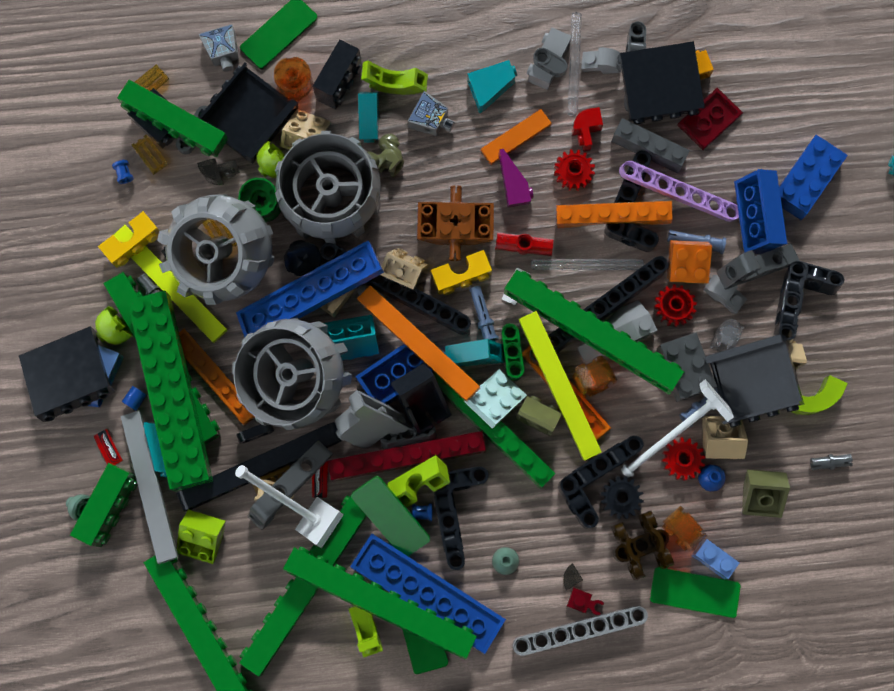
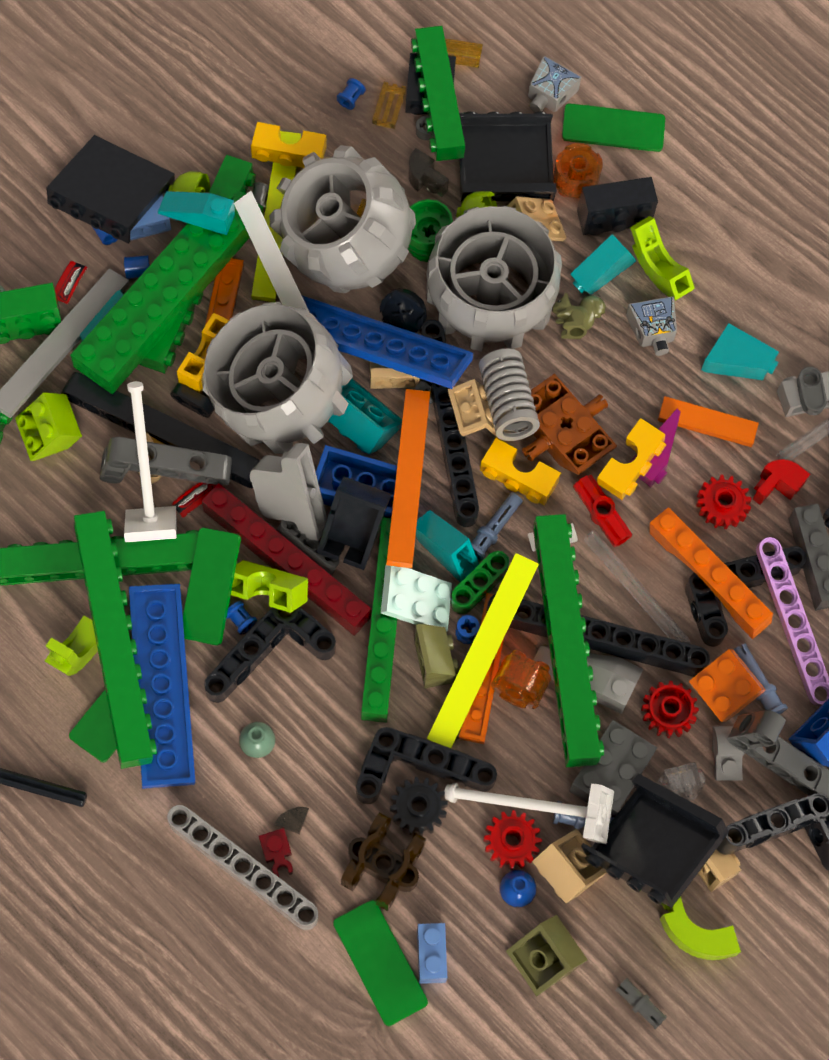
camera: 45 degrees right, 10 degrees down
(136, 333) = (199, 209): none -> teal slope
(206, 312) = (269, 252): none -> white sticker
(237, 413) = (192, 367): none -> yellow arch
(413, 241) = (508, 394): none -> light grey piece
(508, 185) = (620, 477): none -> yellow arch
(538, 388) = (472, 624): none -> blue bush
(684, 529) = (436, 893): clear orange brick -> none

